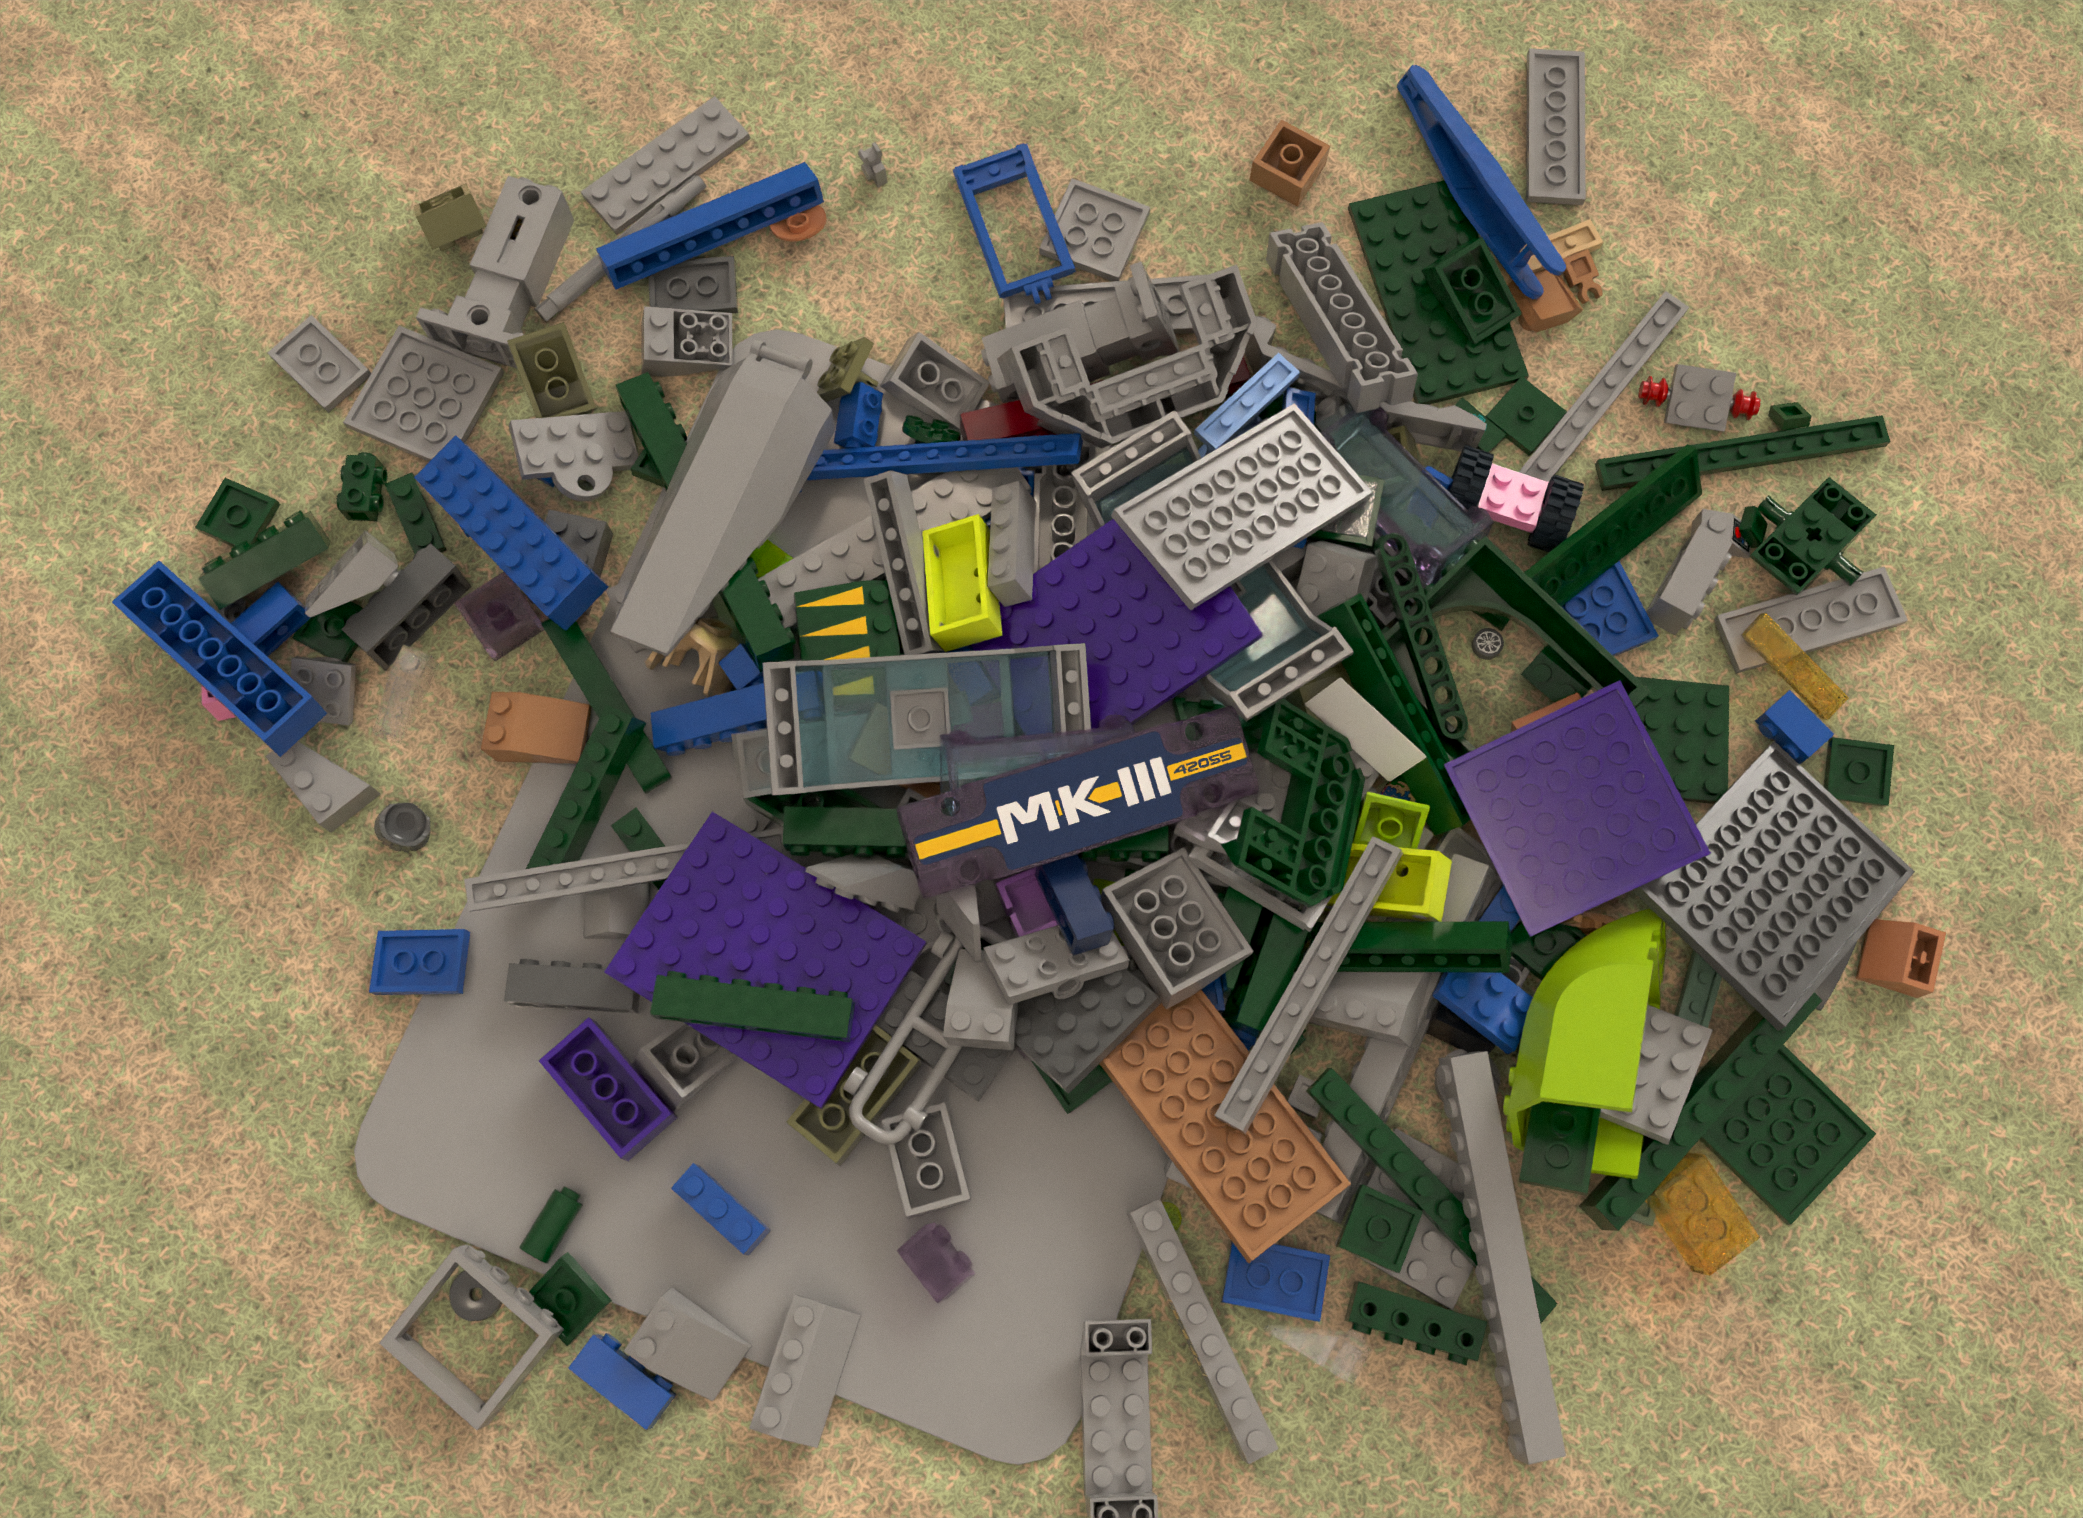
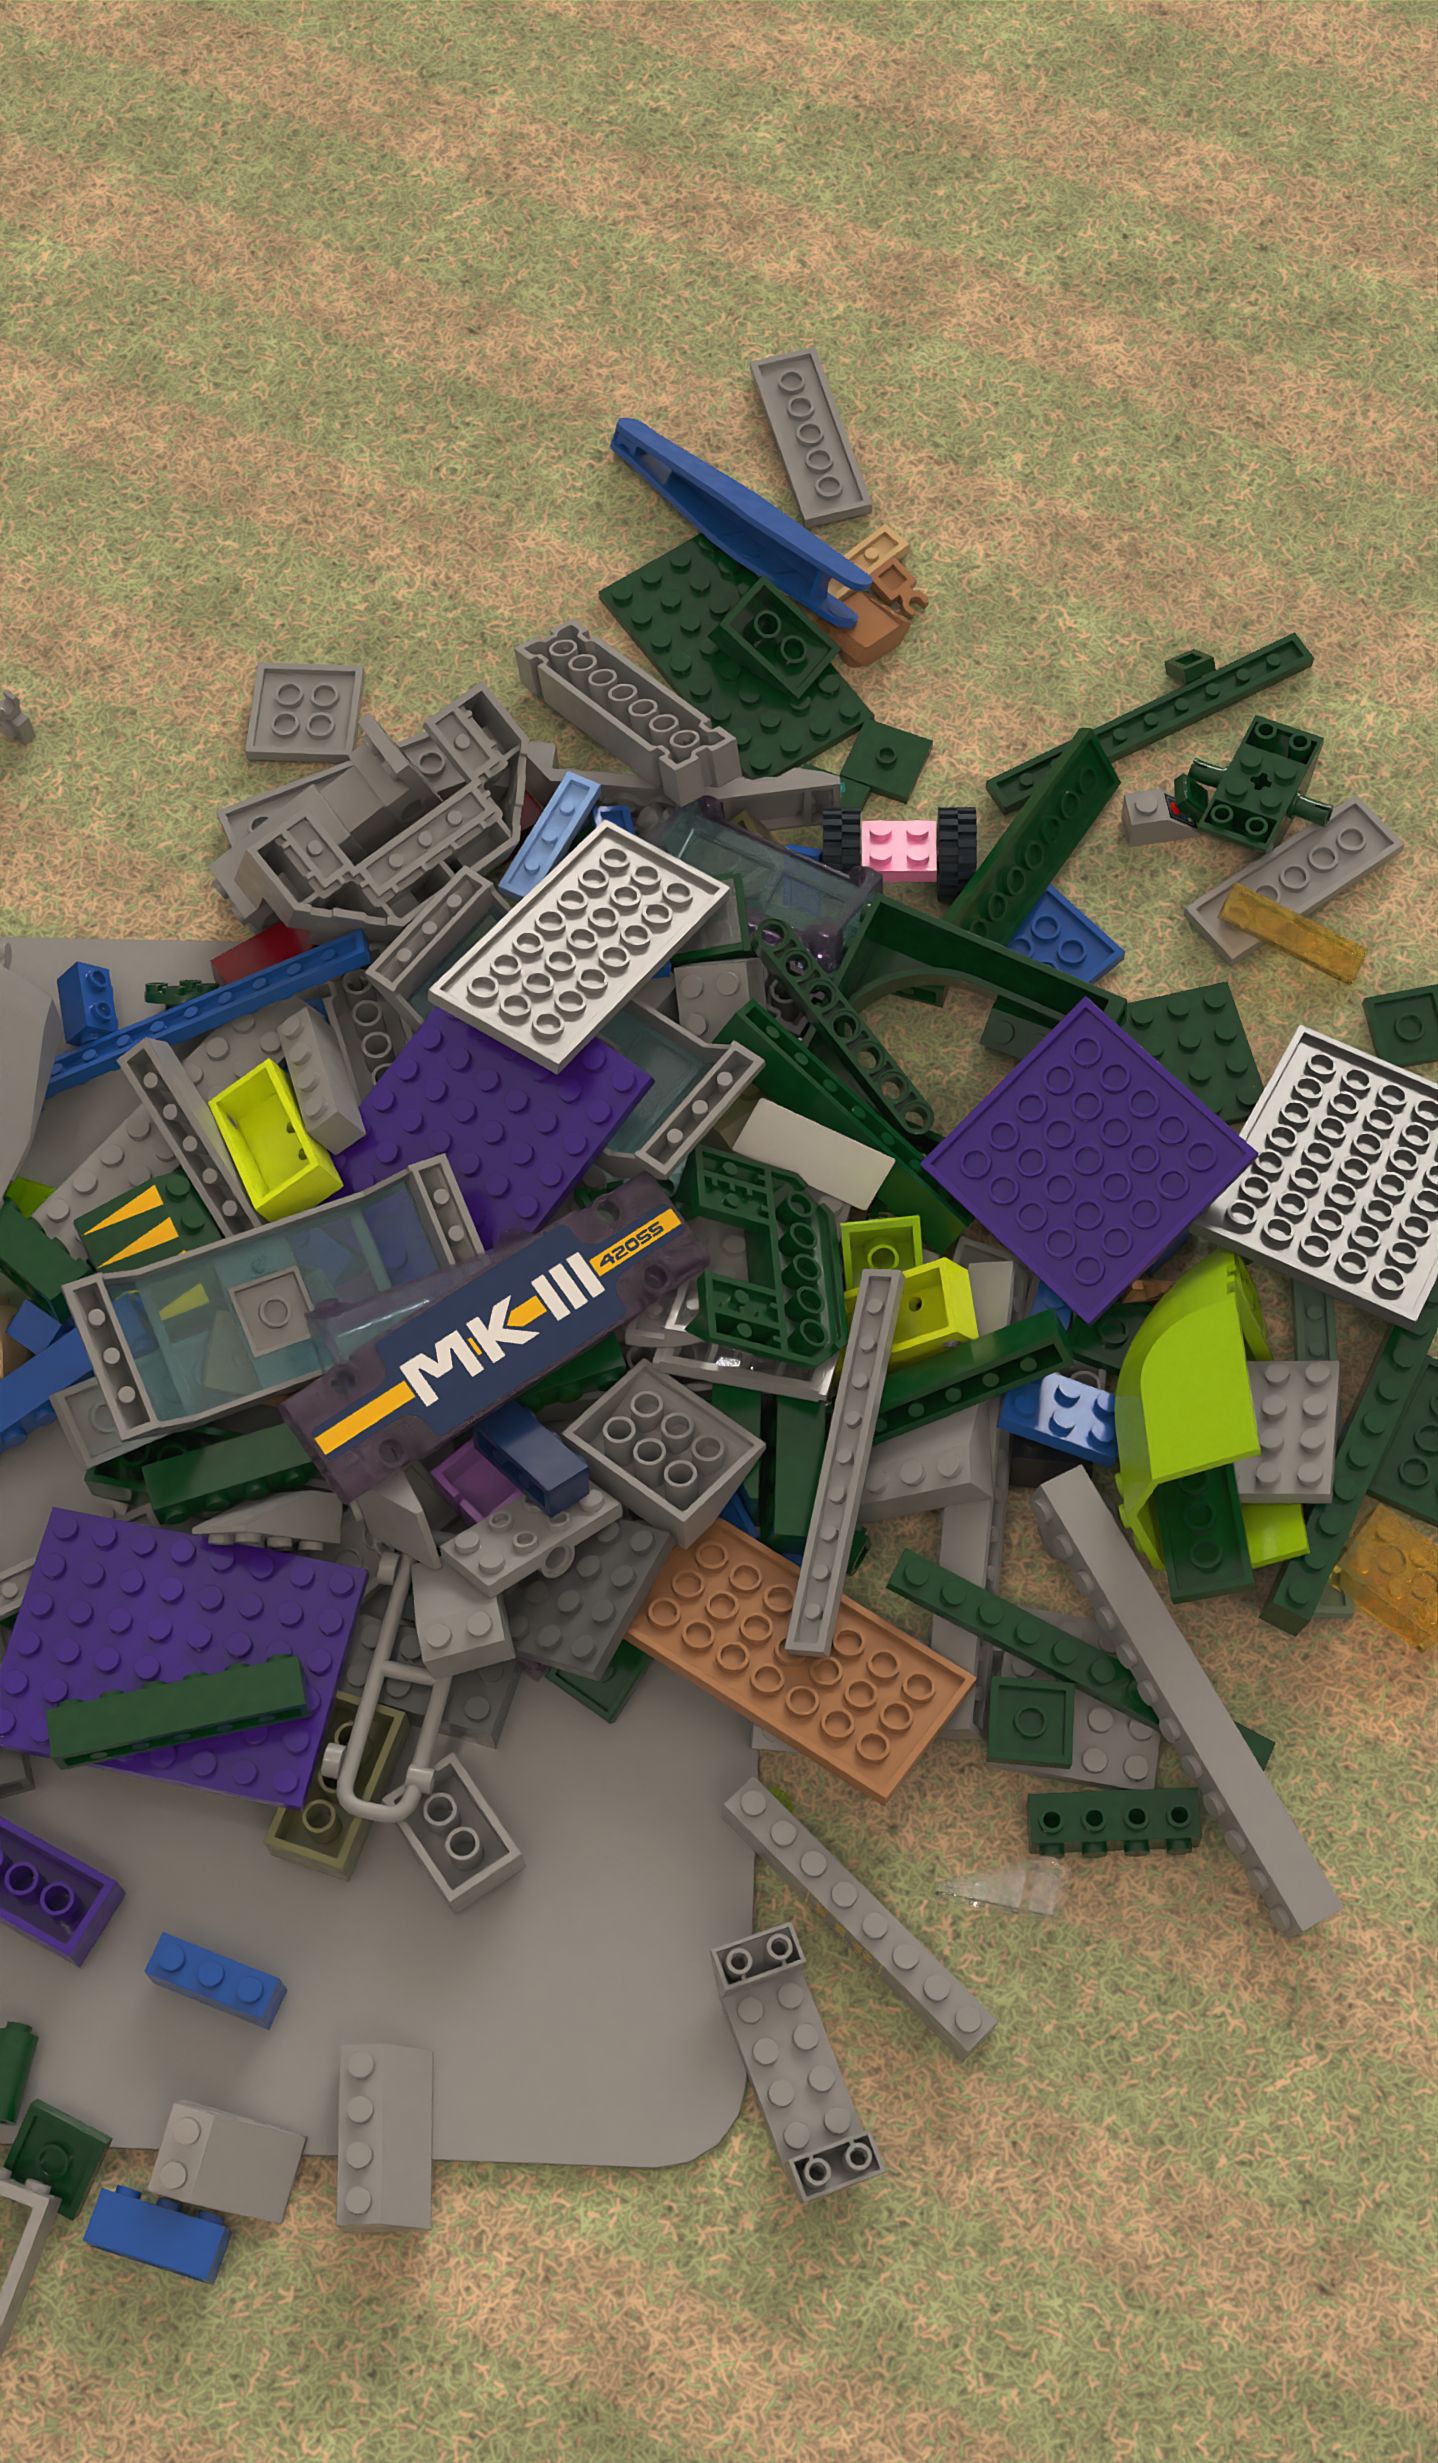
camera: 15 degrees left, 10 degrees down
(681, 1063) = (113, 1820): light grey slope -> none
(846, 370) = (54, 952): olive plate -> none
(934, 381) = (165, 936): light grey slope -> none
(936, 1261) = (505, 1948): clear purple brick -> none
(995, 172) = (169, 680): blue animal -> none
(1278, 1281) = (930, 1831): blue plate -> none
(1289, 162) = (512, 567): medium nougat brick -> none
(1301, 1100) = (893, 1608): light grey plate -> none
(1487, 643) = (930, 1025): dark grey tile -> none
(1605, 388) = (968, 700): light grey plate -> none
(1689, 580) = (1138, 878): light grey brick -> none
(1700, 397) = (1079, 677): light grey plate -> none
(1794, 727) = (1317, 1002): blue brick -> none

